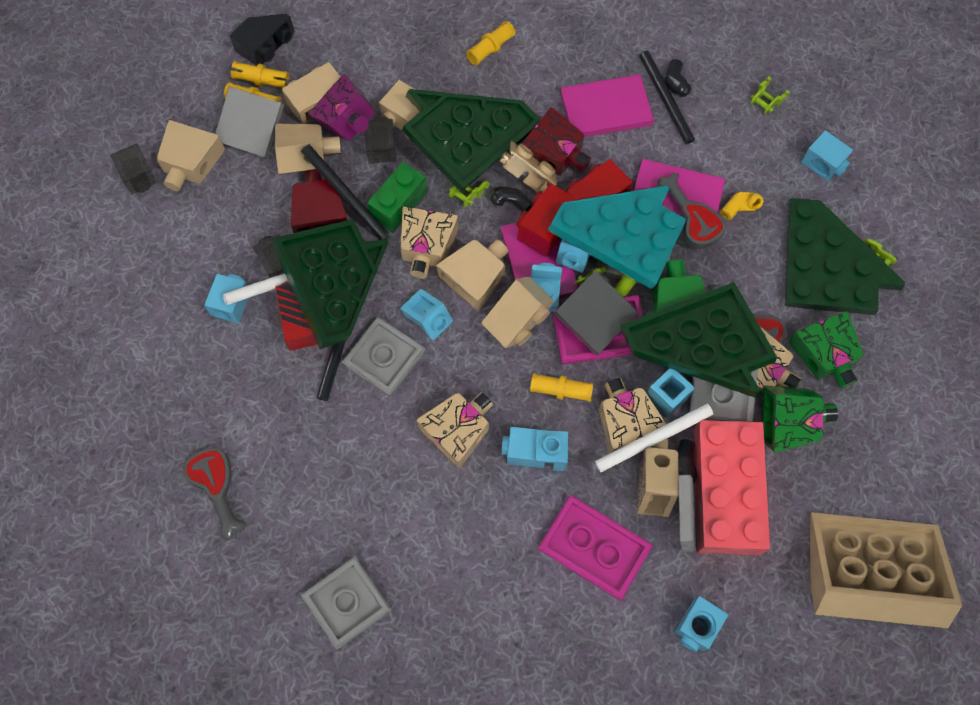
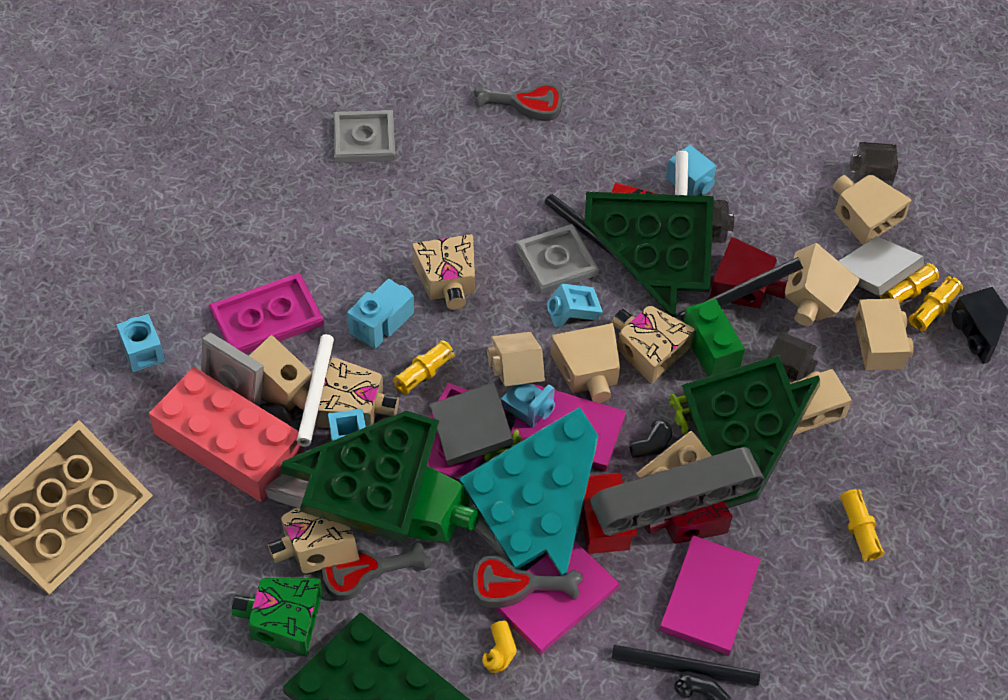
camera: 120 degrees right, 15 degrees down
(343, 110) = (840, 335): magenta torso -> none
(535, 223) = (614, 450): red brick -> none
(564, 139) = (676, 491): none -> dark grey beam
(794, 416) = (243, 522): green torso -> none

